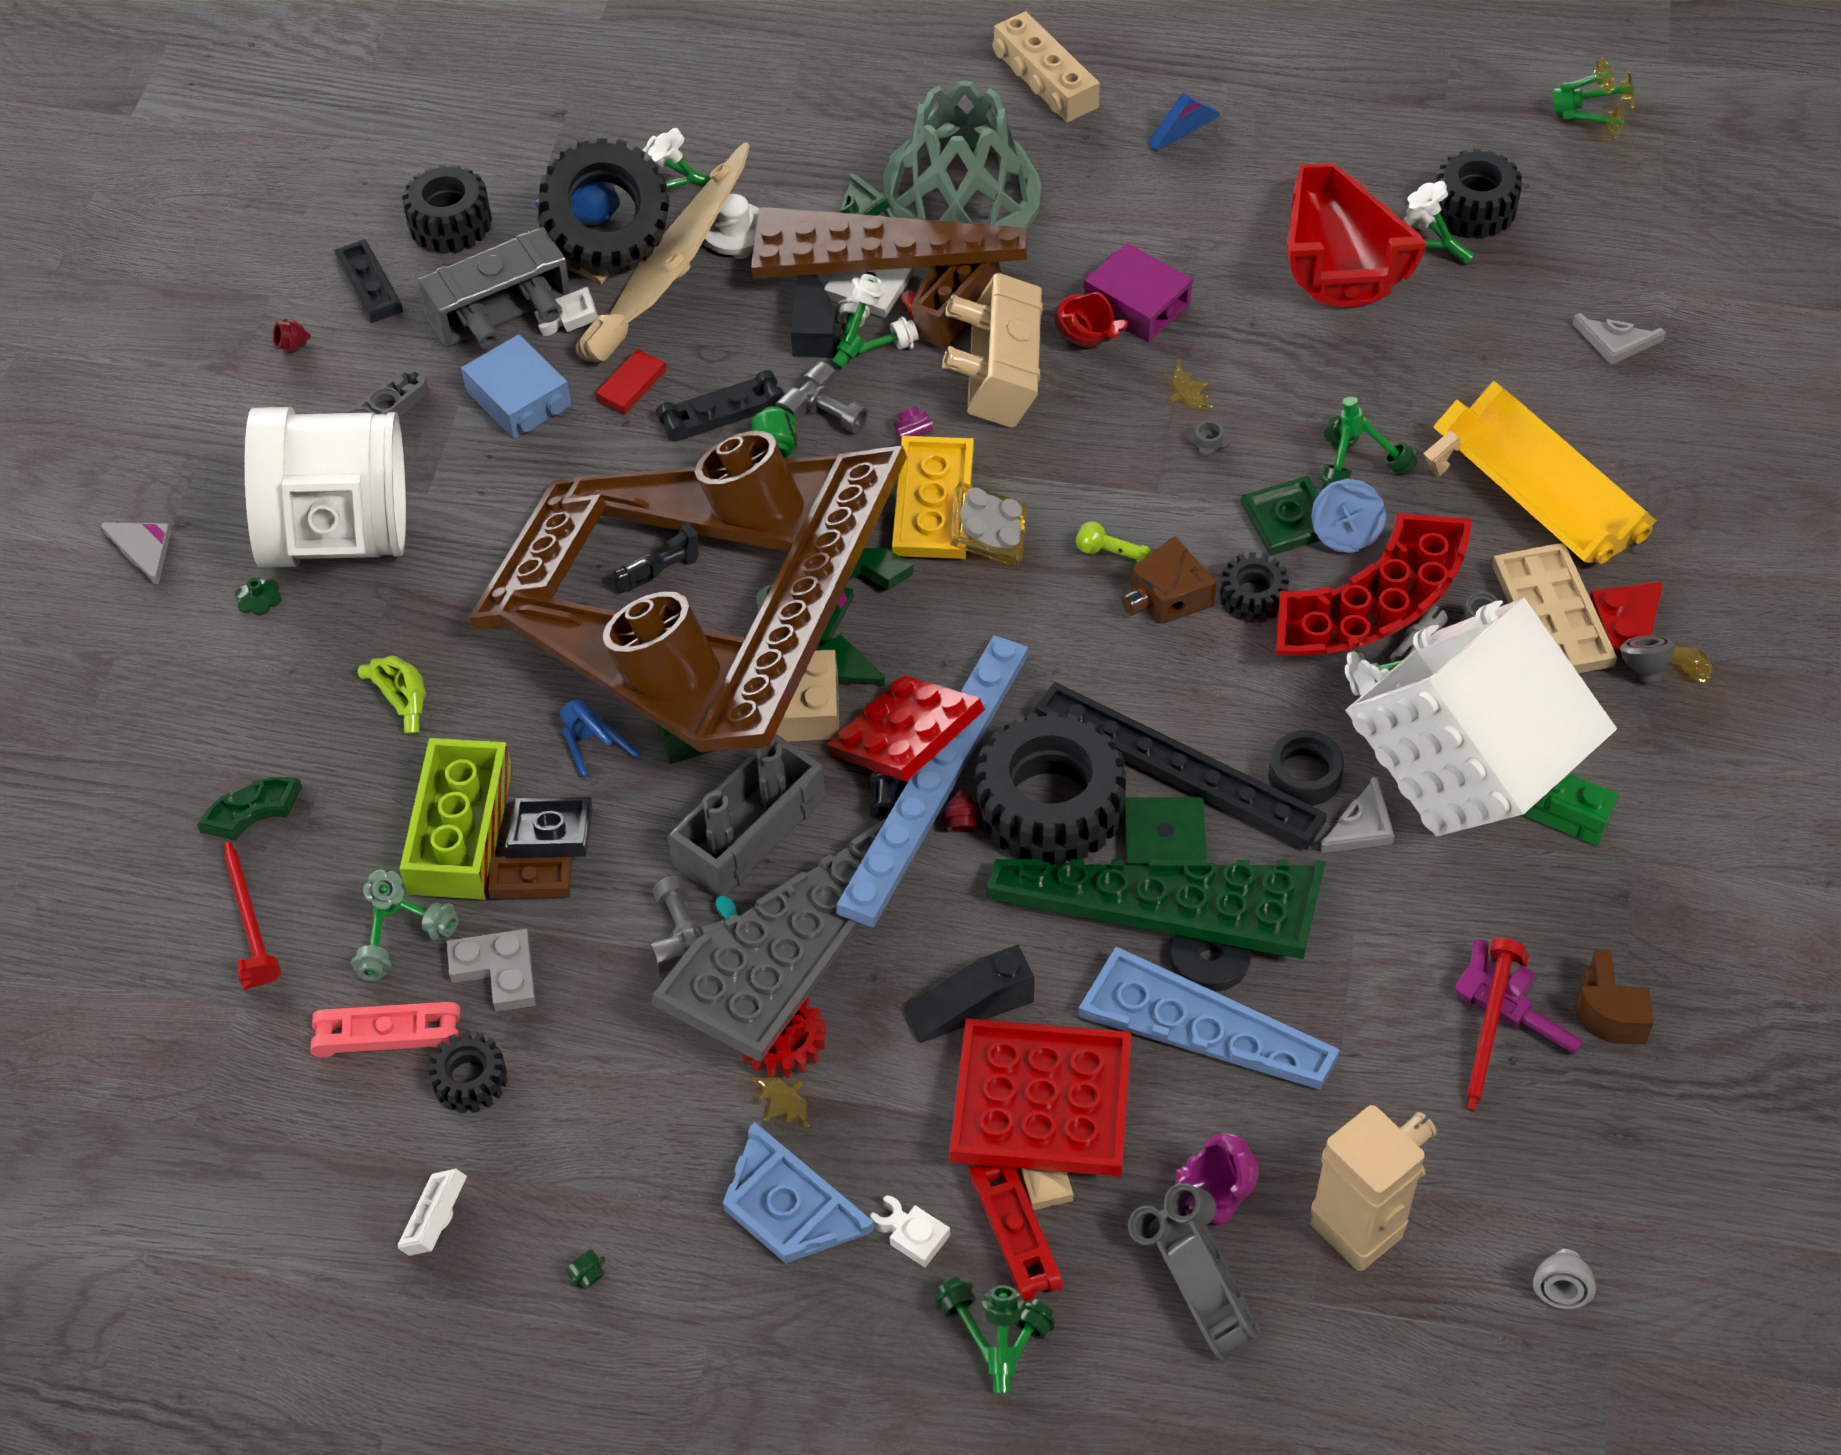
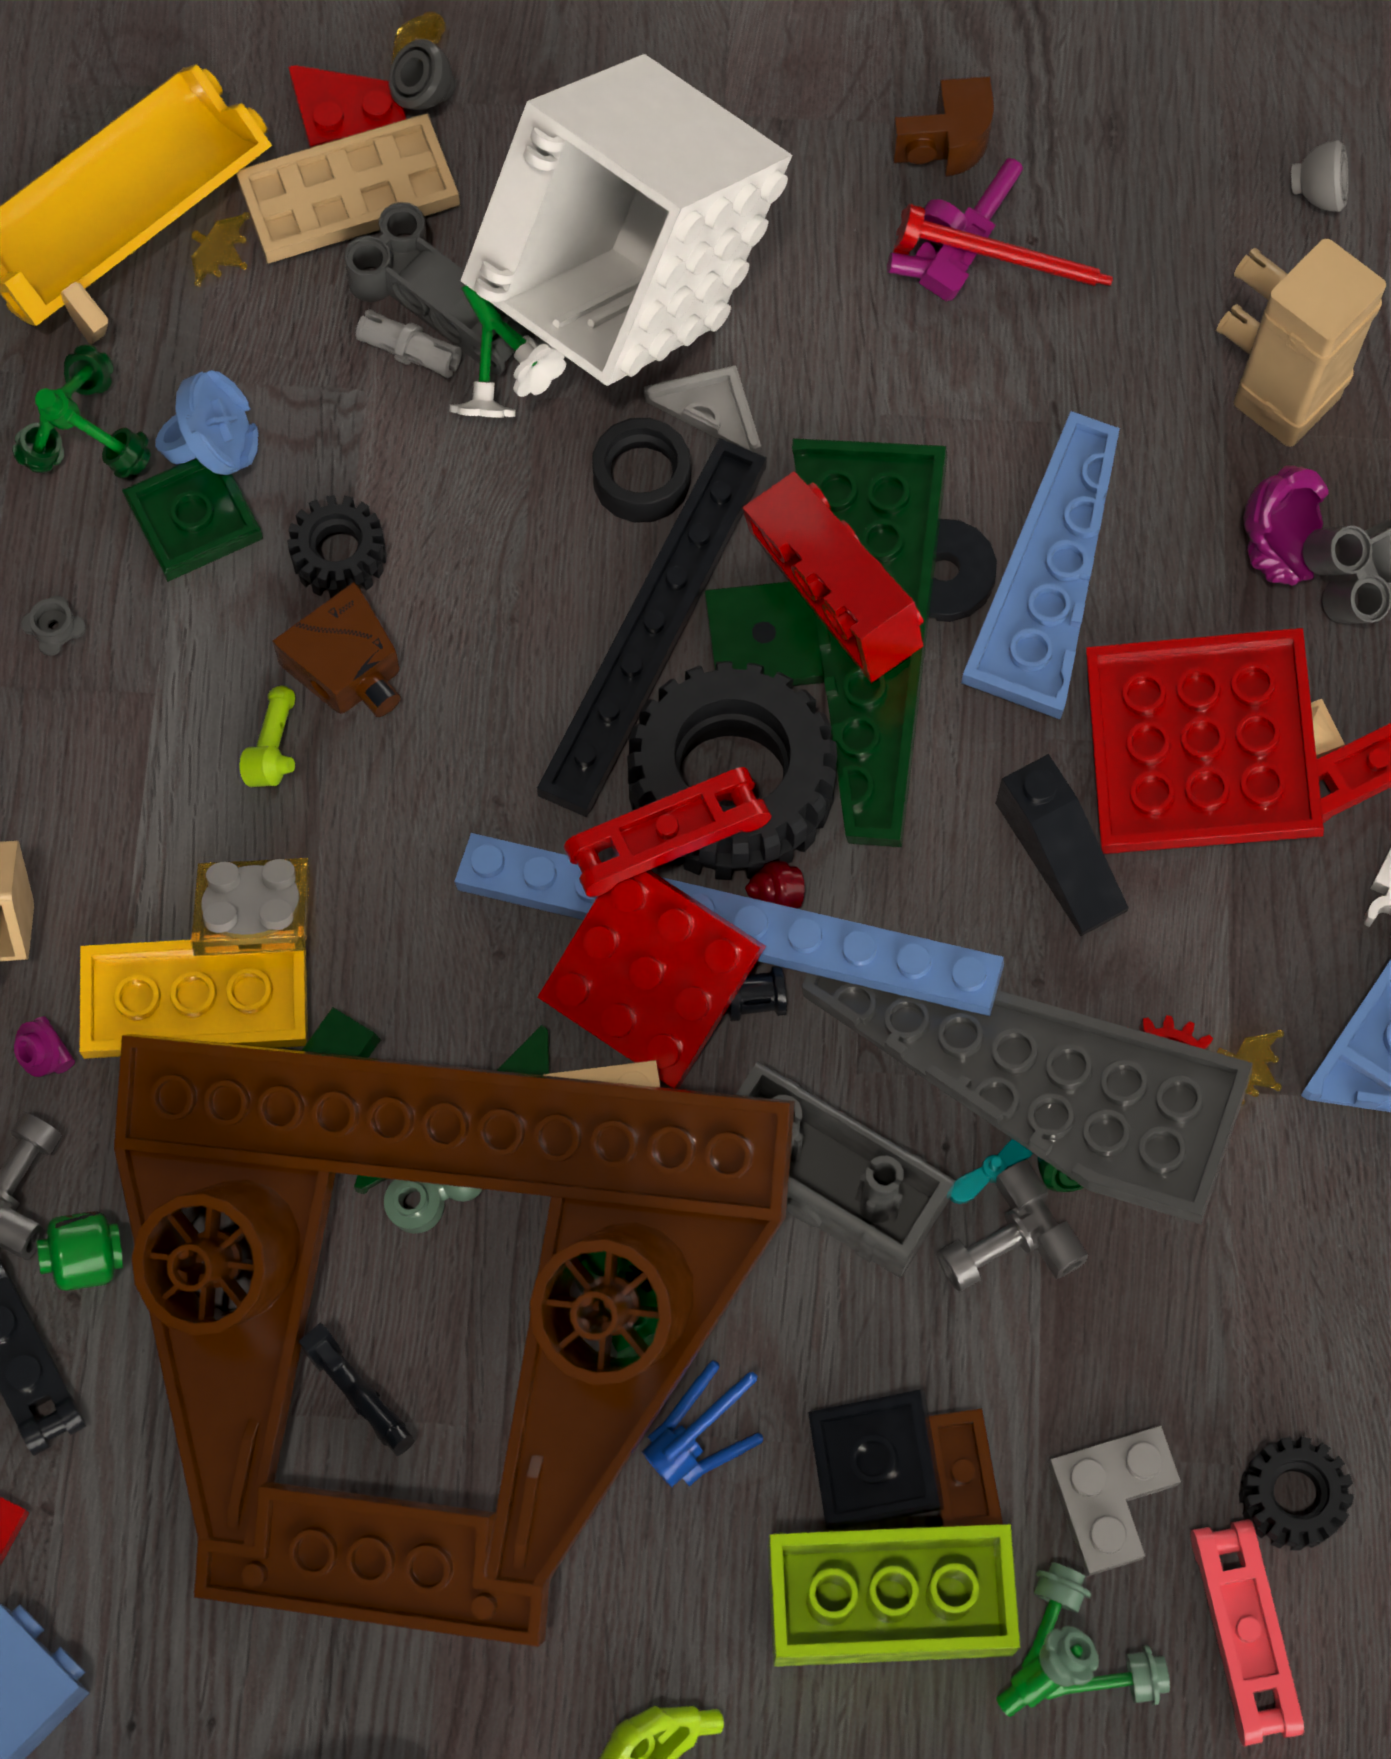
camera: 100 degrees left, 15 degrees up
(990, 716) = (666, 830): none -> red plate
(1191, 856) = (836, 575): none -> red wedge
(1381, 598) = (356, 378): red brick -> none
(1503, 537) = (218, 248): none -> clear yellow piece

